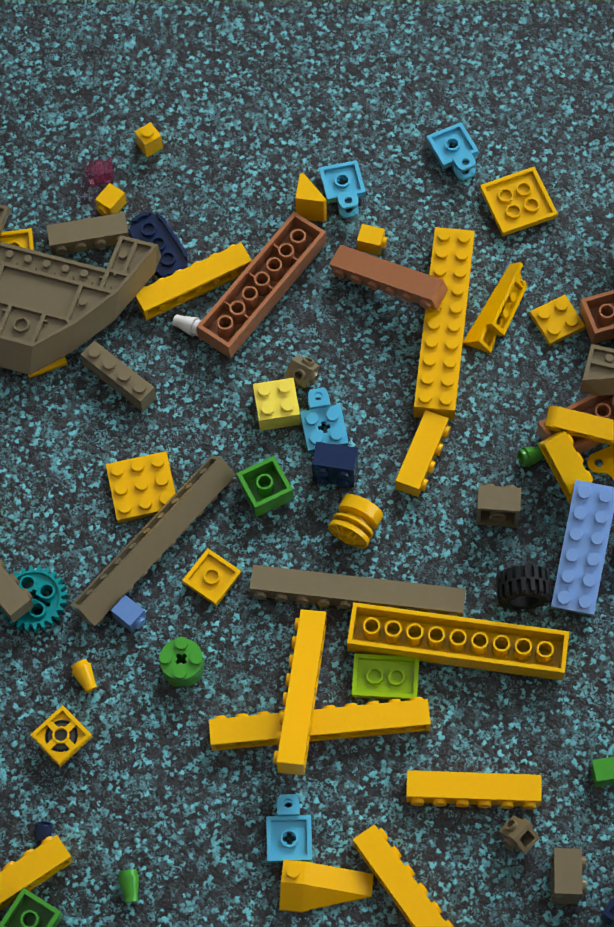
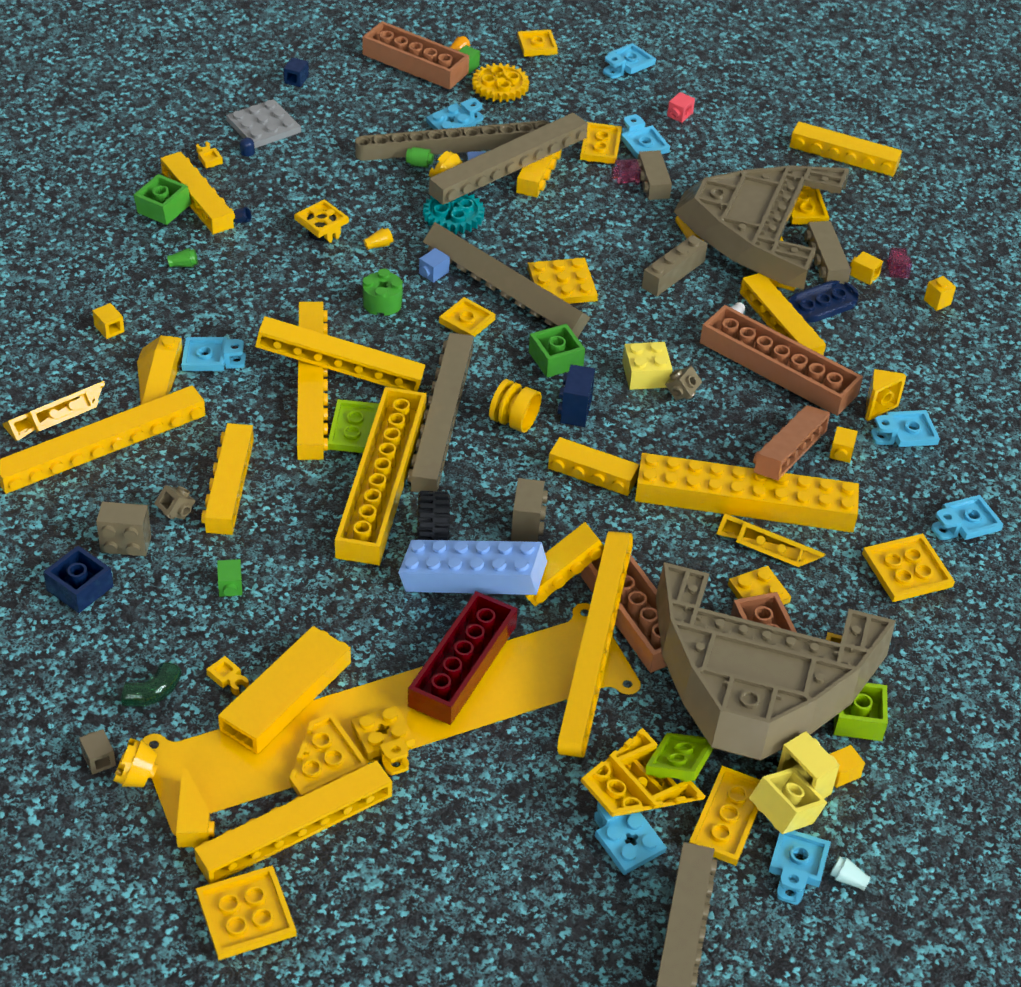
camera: 85 degrees right, 20 degrees down
(322, 413) = (637, 398): medium azure plate -> none

